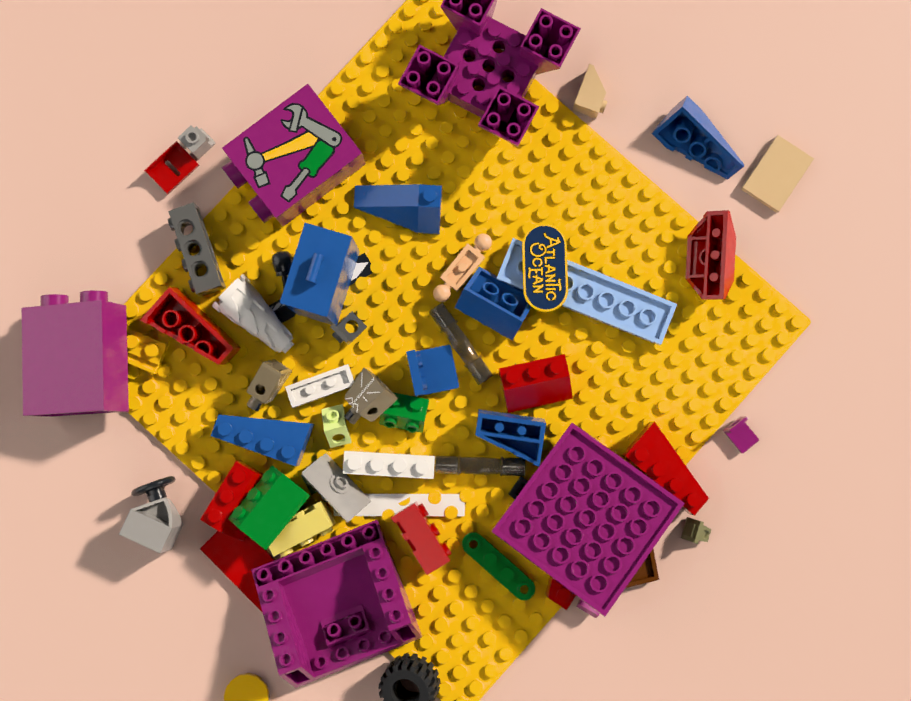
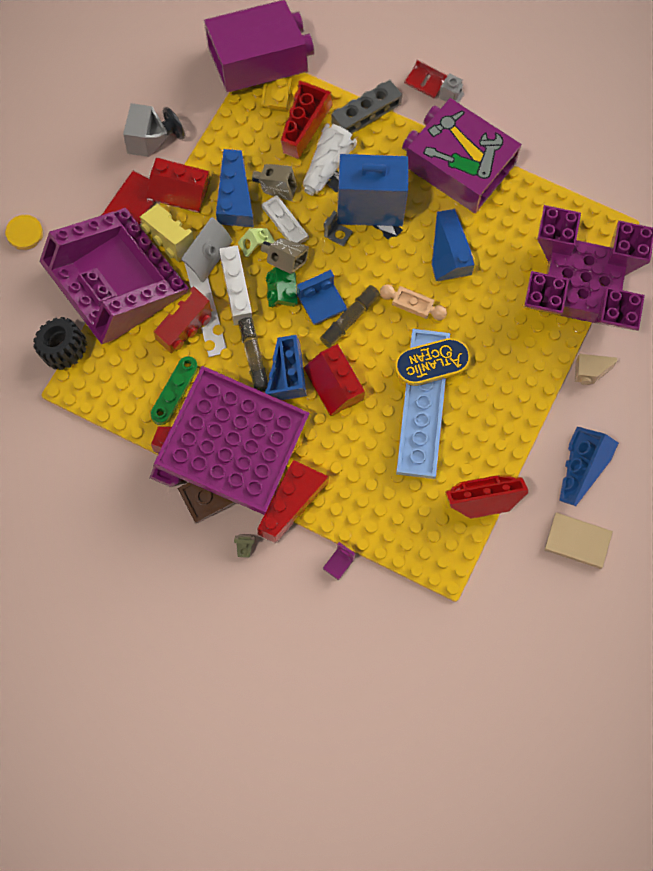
camera: 70 degrees right, 15 degrees down
(268, 507) = (179, 201): green slope -> none
(493, 303) = (390, 331): blue slope -> none

